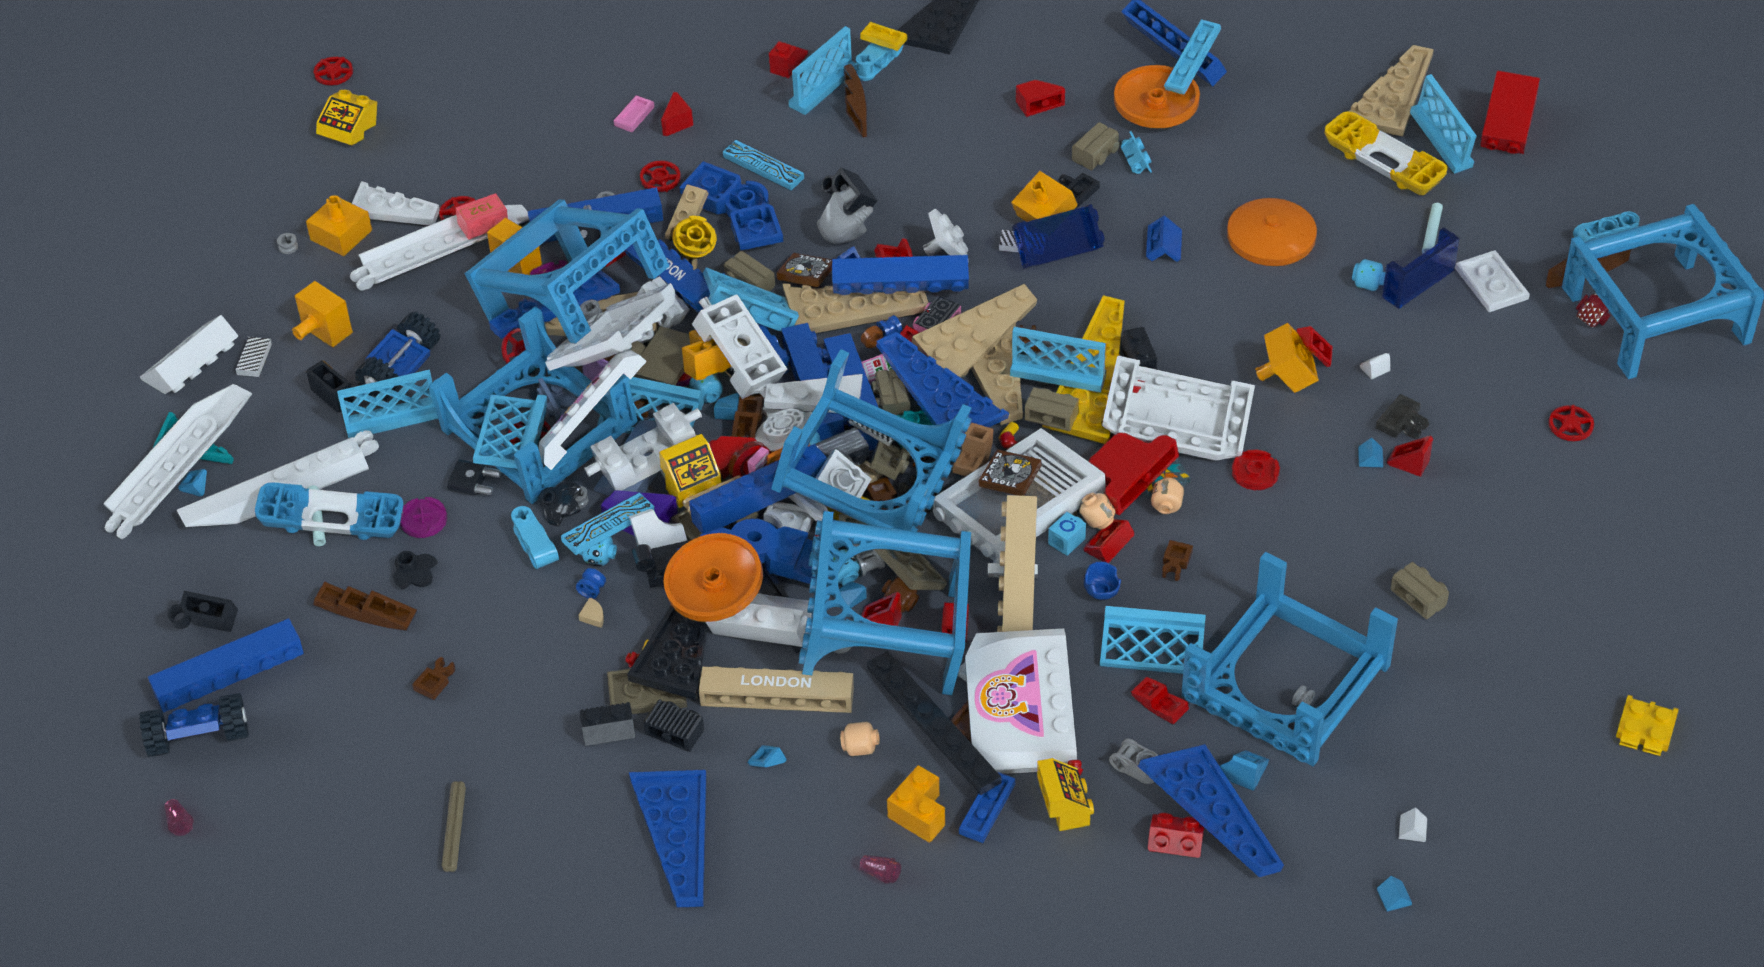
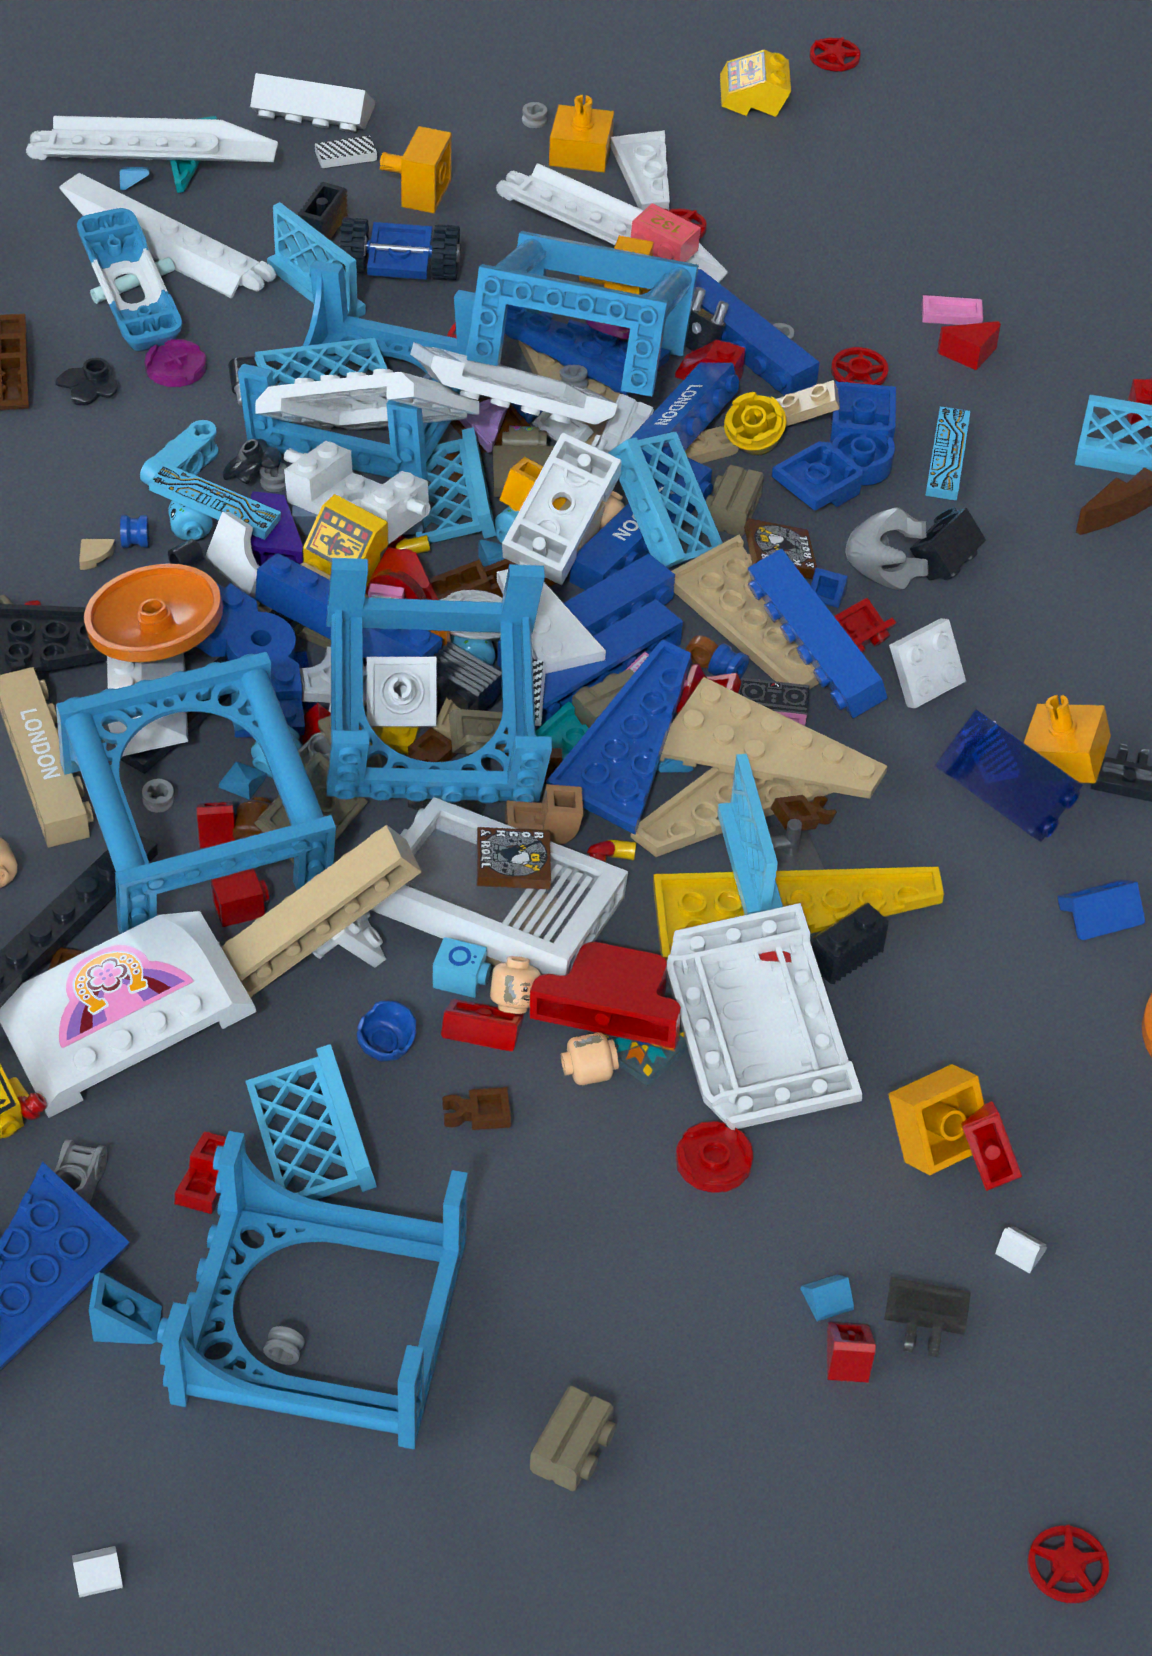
camera: 60 degrees right, 0 degrees up
(1051, 409) = (668, 870): dark tan brick -> none

